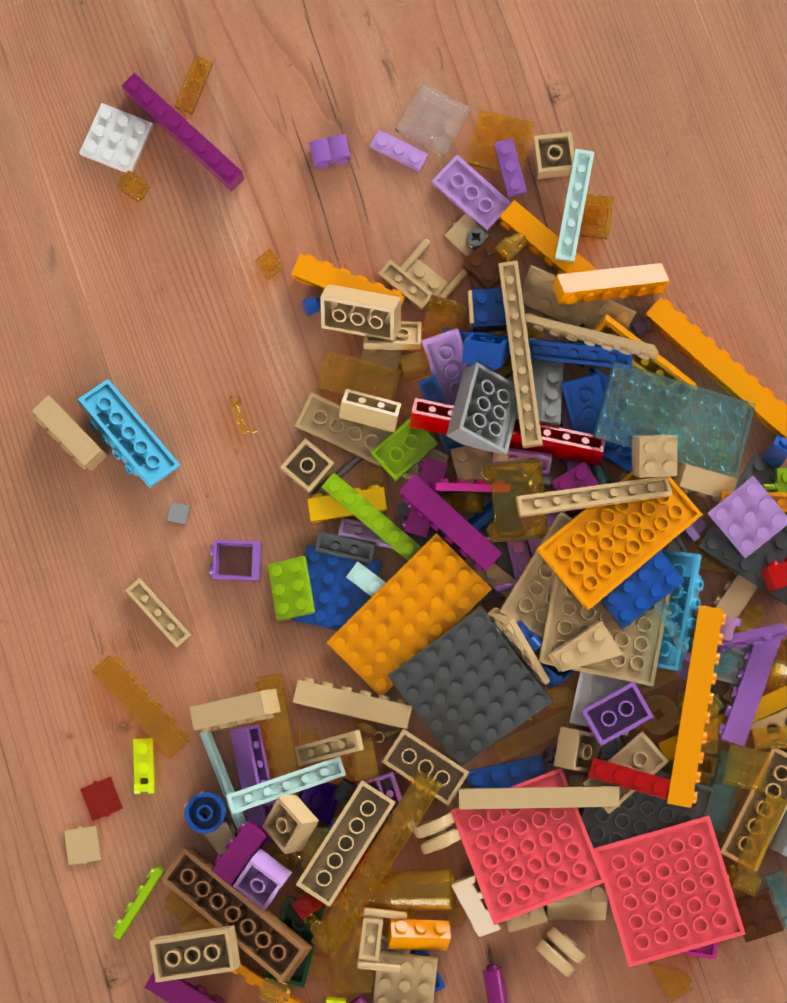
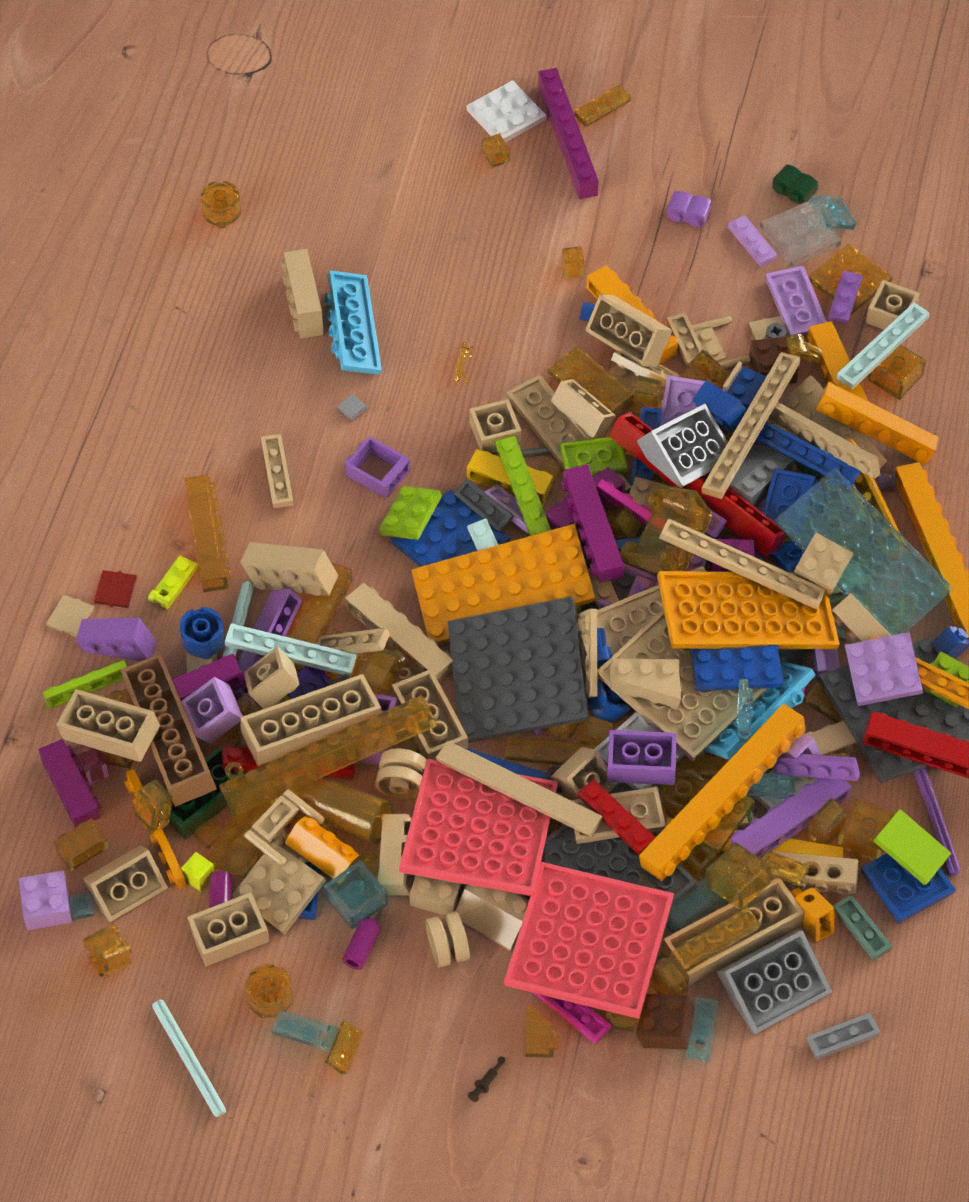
camera: 30 degrees right, 25 degrees down
(135, 849) = (116, 638): none -> medium lavender wedge
(401, 74) = (795, 184): none -> dark green brick
(453, 81) = (839, 213): none -> clear light blue plate
(467, 954) = (356, 894): none -> clear light blue brick

